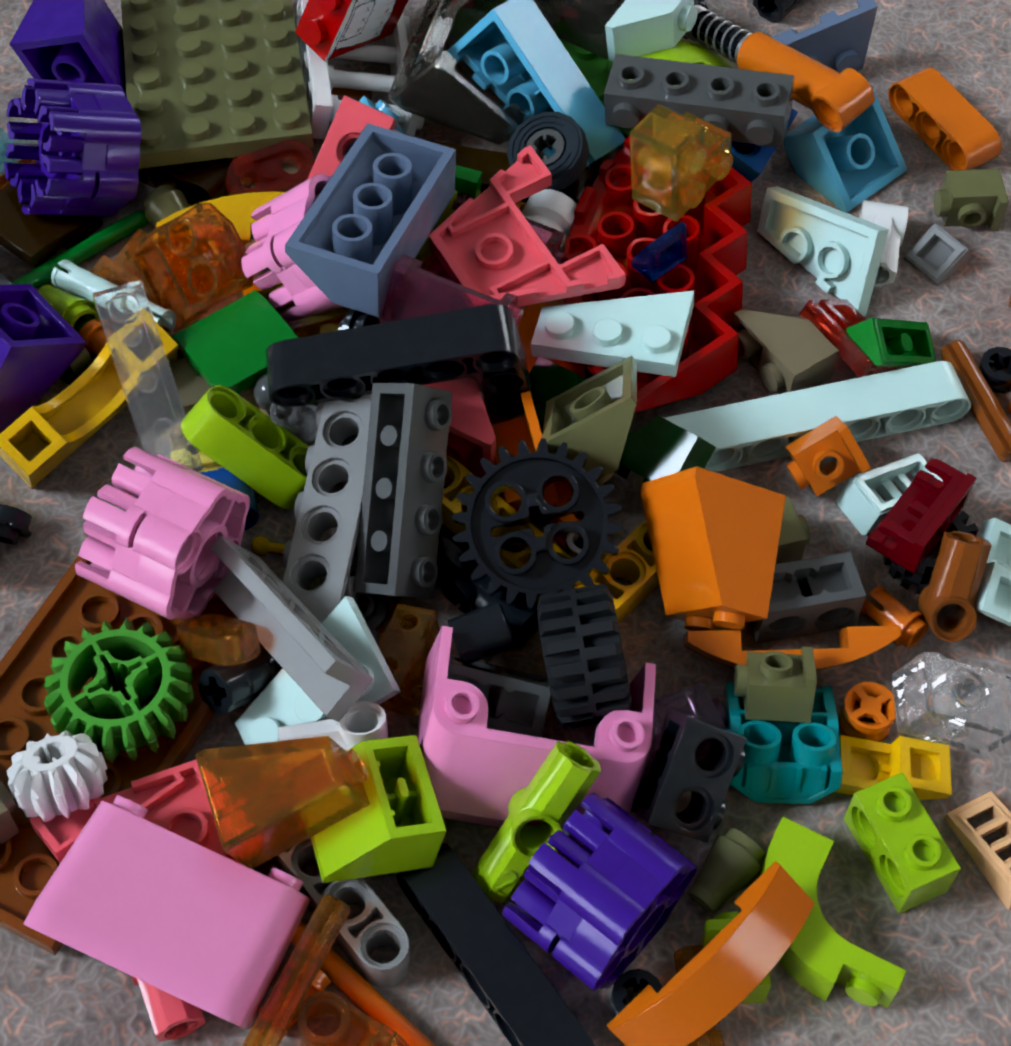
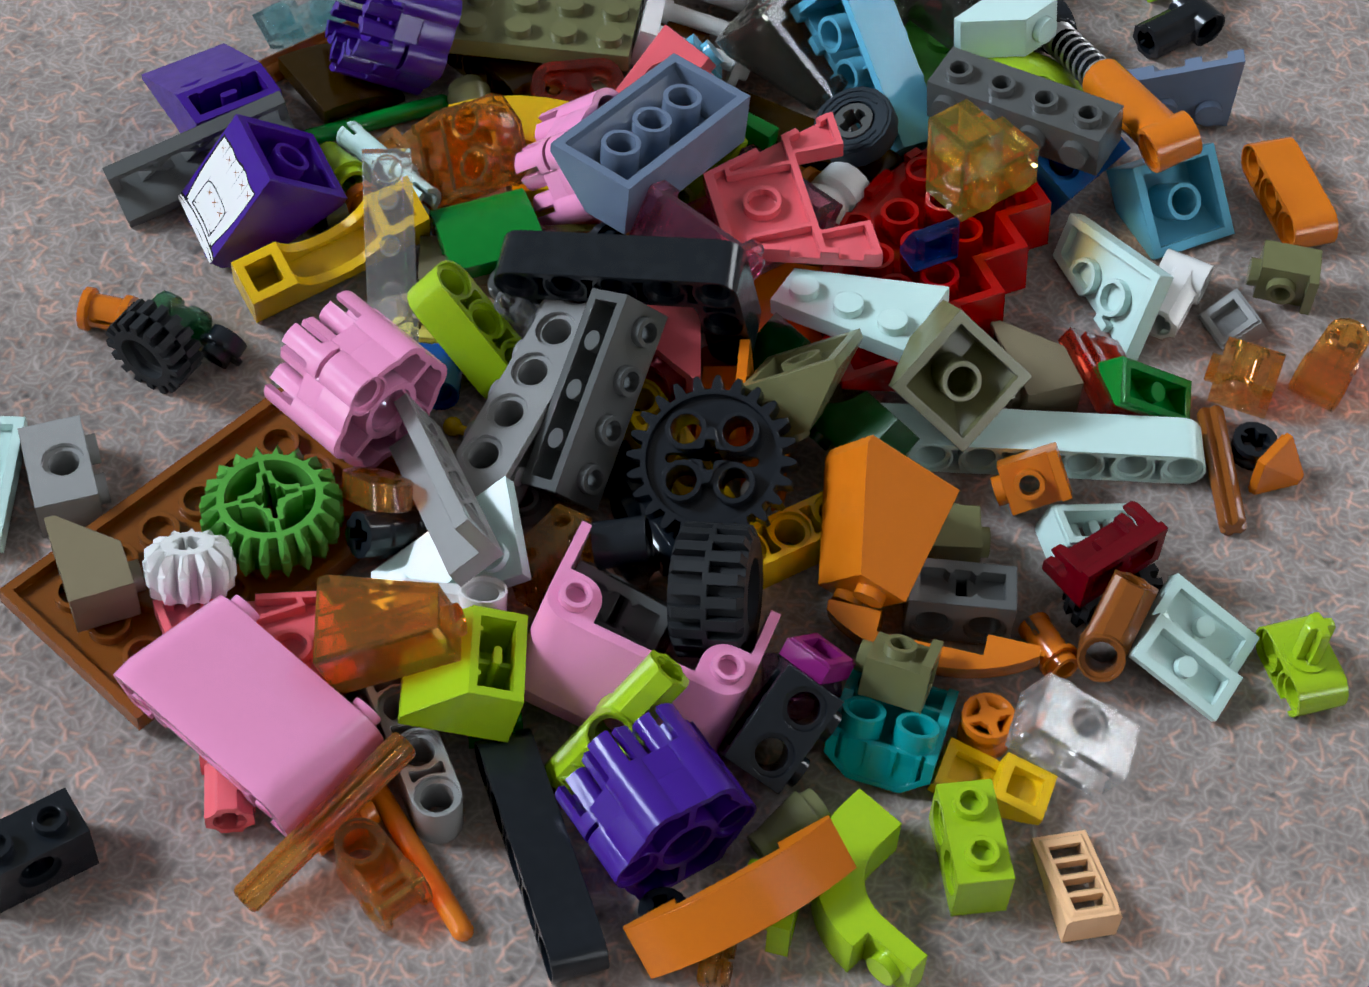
camera: 15 degrees right, 5 degrees down
(703, 697) = (818, 658): none -> magenta tile
(732, 375) = (956, 375): none -> olive slope
(972, 306) = (1244, 376): none -> clear orange brick

